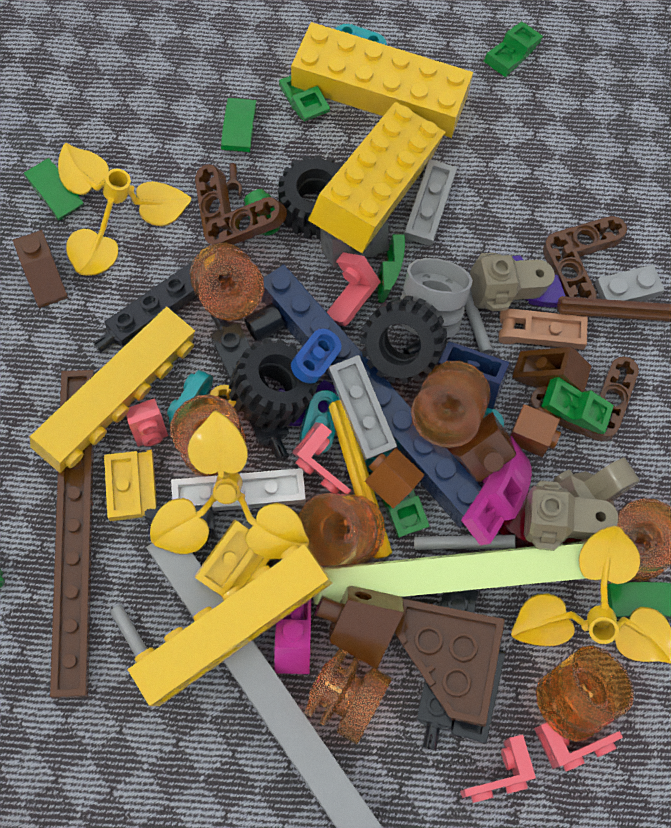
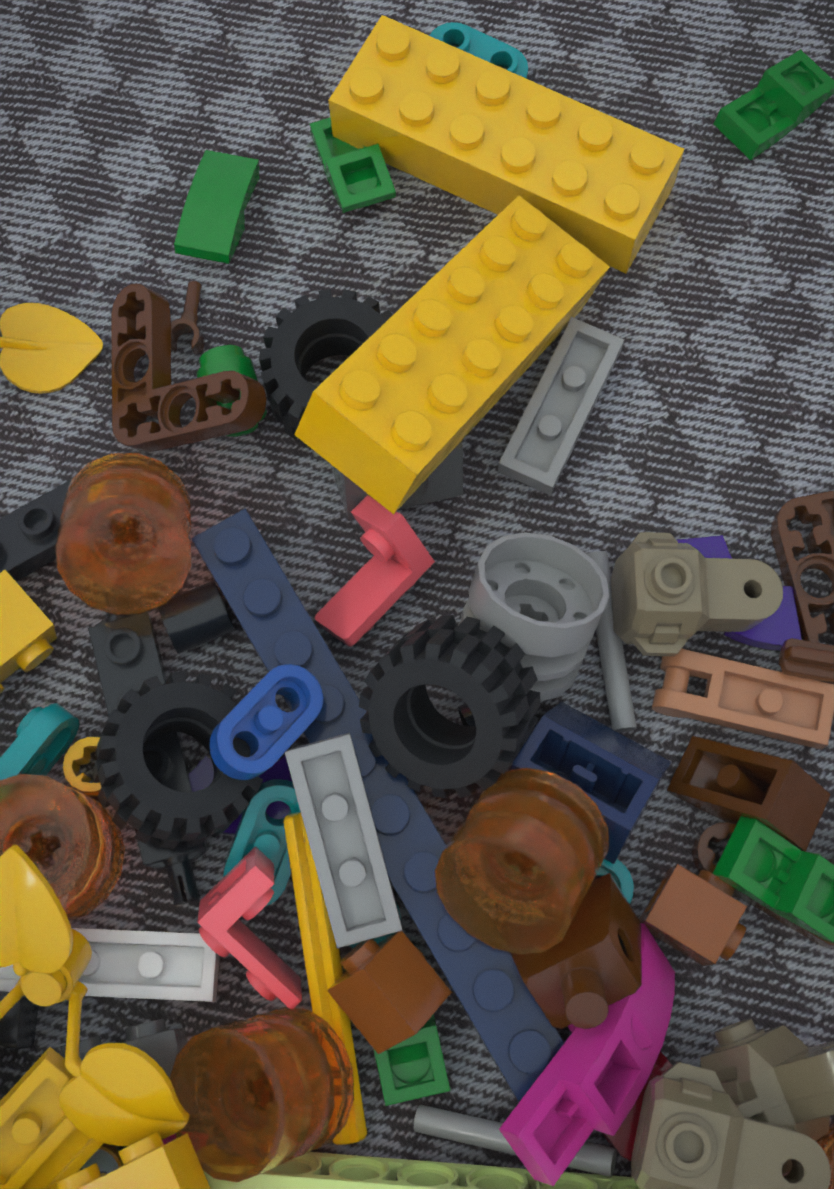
camera: 15 degrees right, 5 degrees up
(391, 268) = (455, 543): green slope -> none

